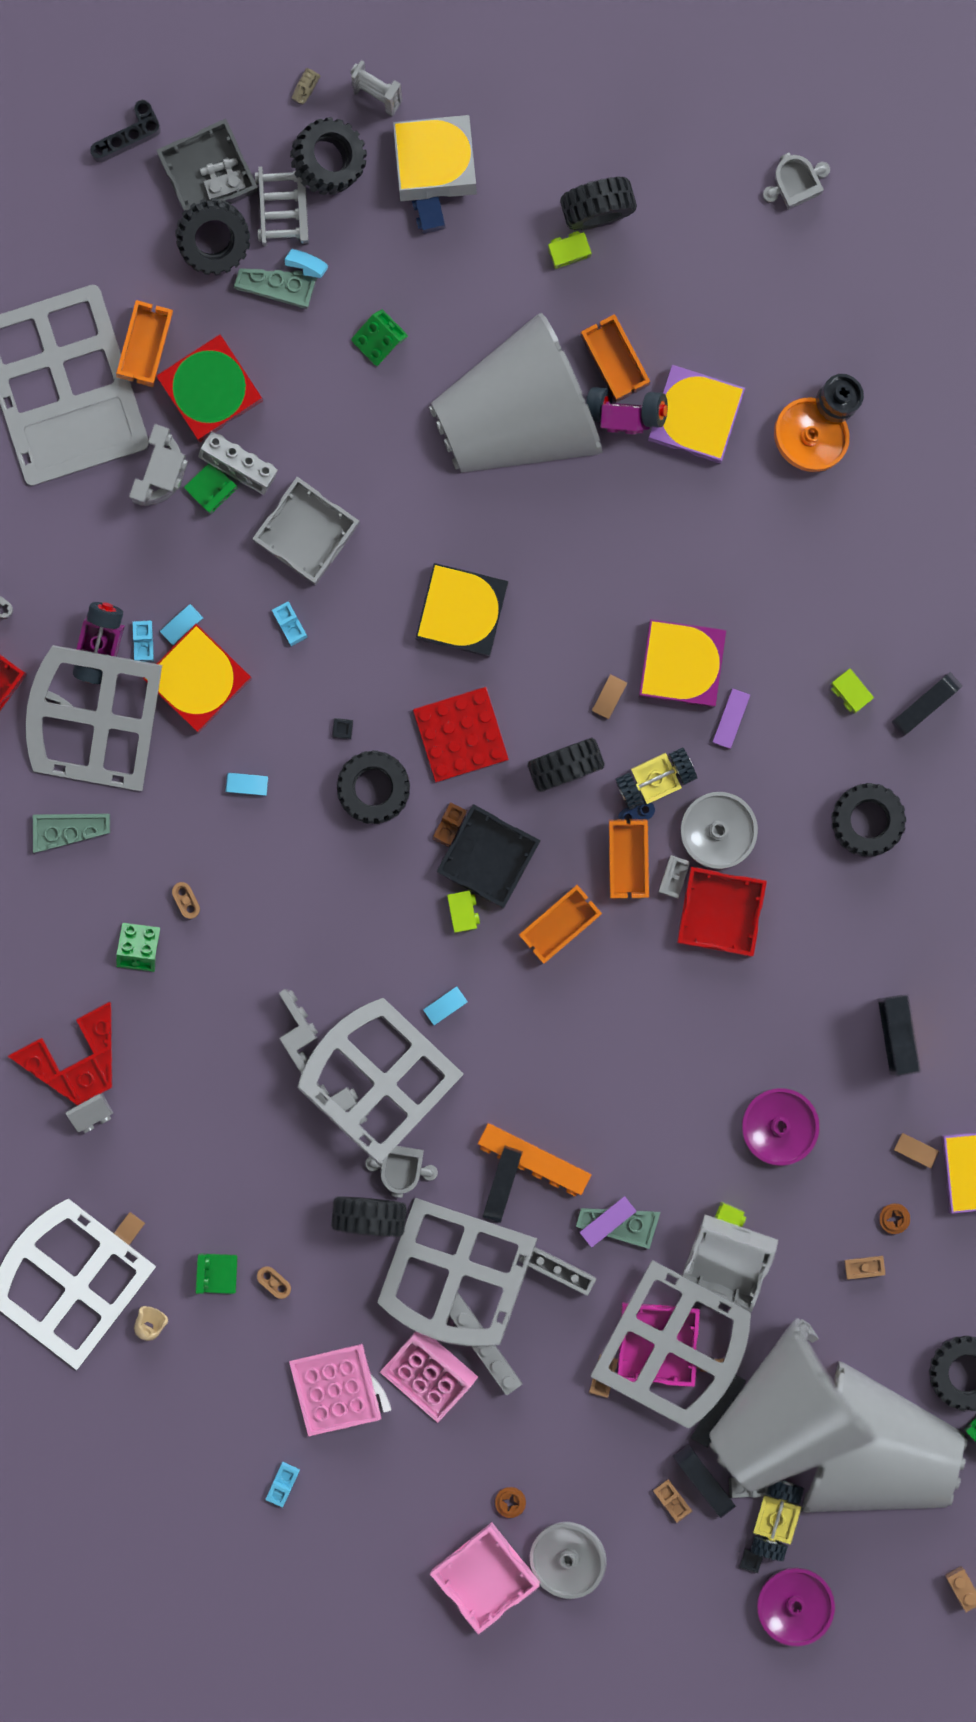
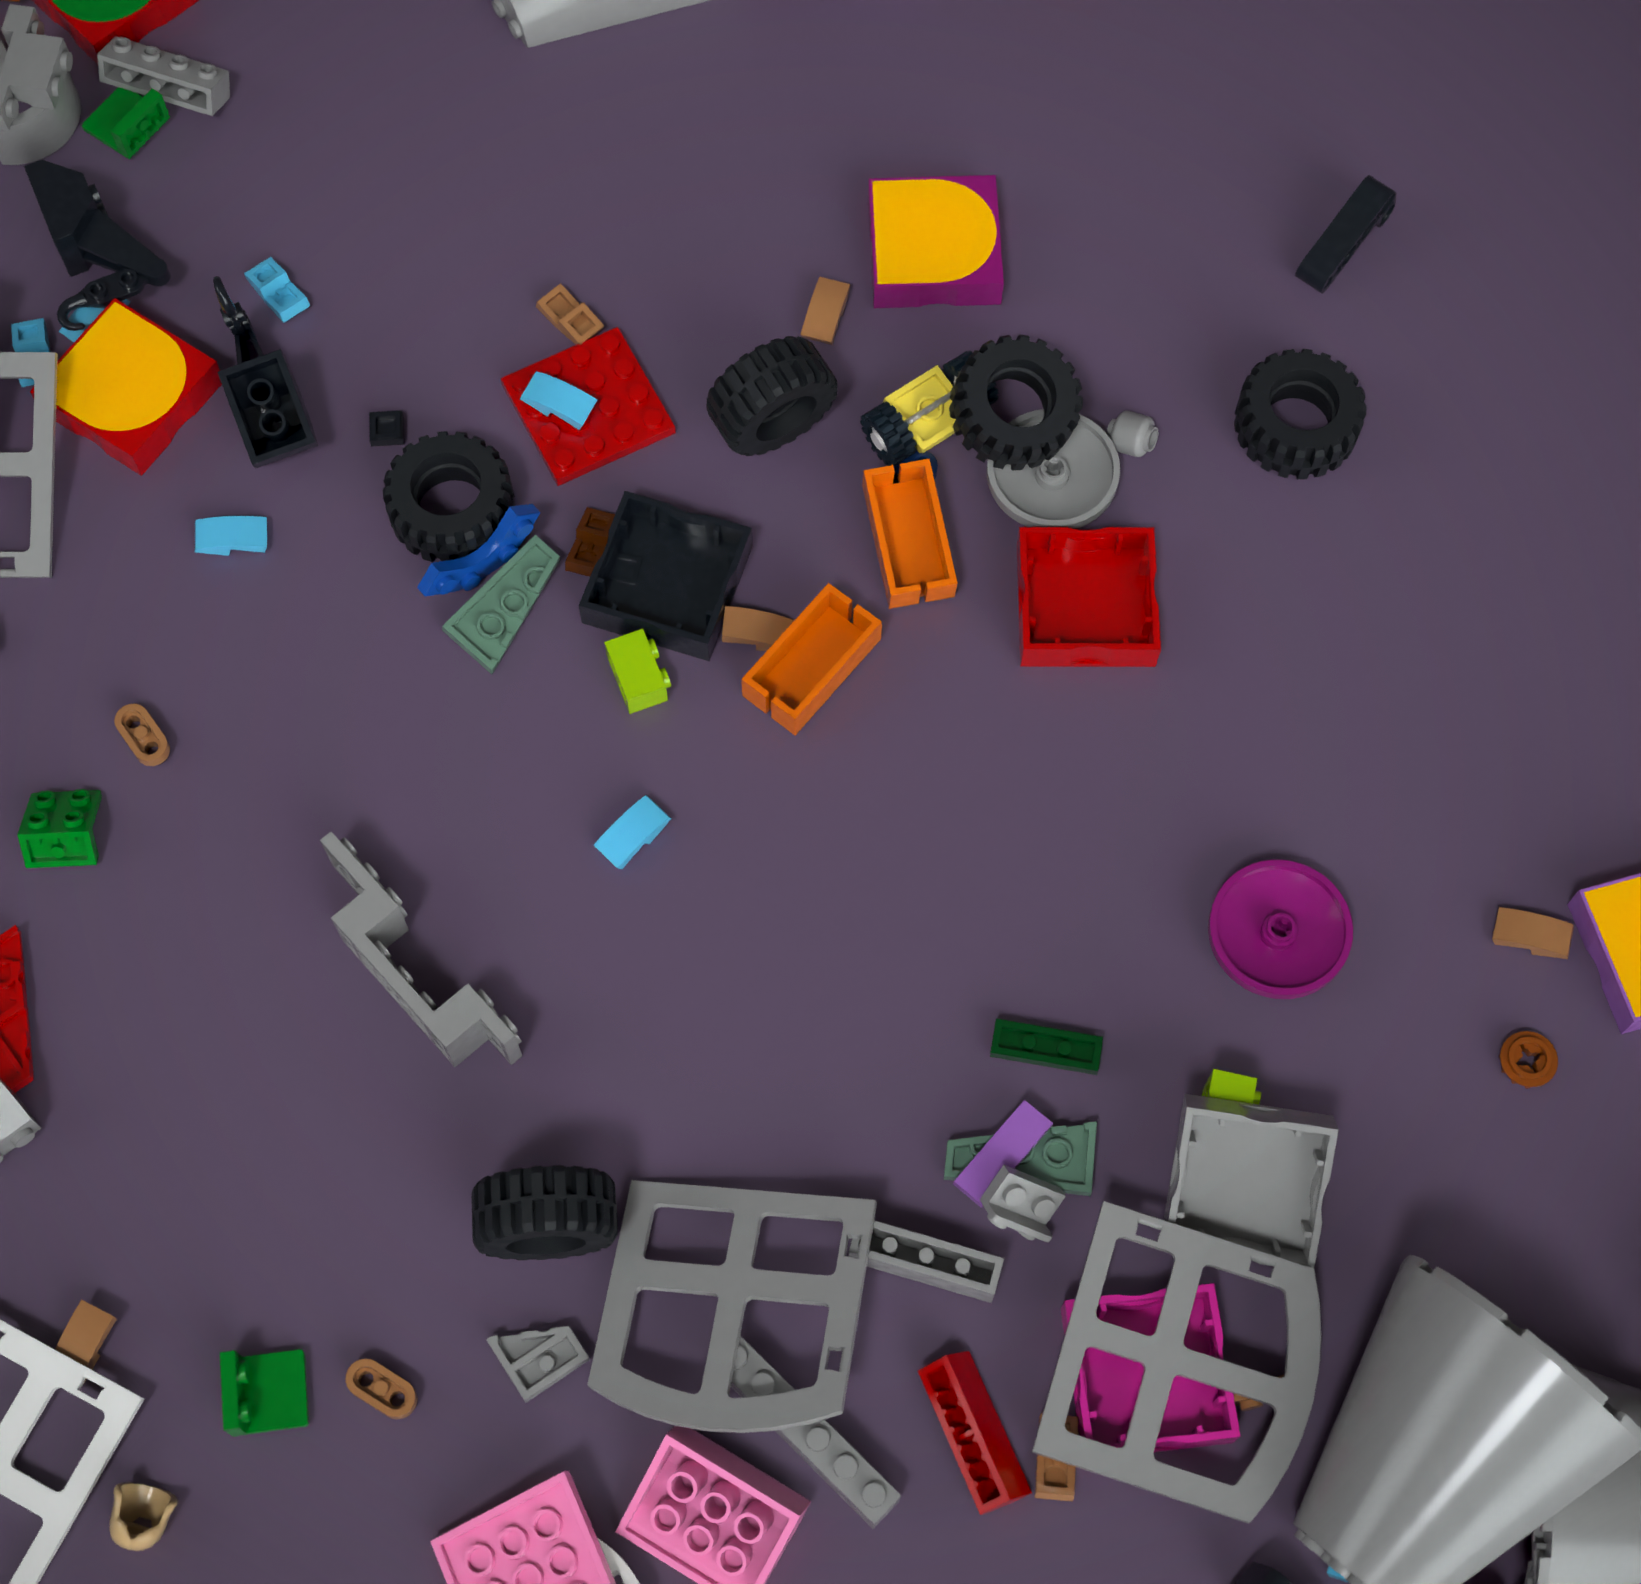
camera: 10 degrees left, 20 degrees down
(180, 572) = (89, 237): none -> black slope
(276, 706) = (262, 393): none -> black slope
(306, 531) = (286, 152): light grey tile -> none
(354, 1281) = (538, 1358): none -> light grey wing
(377, 834) = (467, 571): none -> blue plate
(383, 1083) = (536, 971): light grey window -> none
(392, 857) = (501, 605): none -> sand green wing
(402, 1169) = (597, 1126): light grey piece -> none
(444, 735) = (558, 397): none -> medium azure slope
(459, 672) = (569, 316): none -> medium nougat slope
(461, 609) = (558, 222): yellow tile -> none
(502, 1184) = (791, 1119): black tile -> none
(533, 896) = (753, 627): none -> medium nougat slope
(537, 1160) = (843, 1068): orange brick -> none
(565, 1357) = (974, 1432): none -> red brick
(611, 1251) = (1022, 1203): none -> light grey bracket
(643, 1166) = (1046, 1046): none -> dark green plate
(674, 876) = (993, 558): light grey hinge -> none
(708, 1422) = (1276, 1526): black tile -> none
(721, 814) = (1038, 369): none -> black tyre
(731, 718) = (1034, 303): medium lavender tile -> none
(770, 812) = (1133, 433): none -> light grey head
(851, 691) = (1219, 238): lime brick -> none
(864, 1267) = (1499, 1156): medium nougat plate -> none
(898, 1035) = (1453, 722): black tile -> none

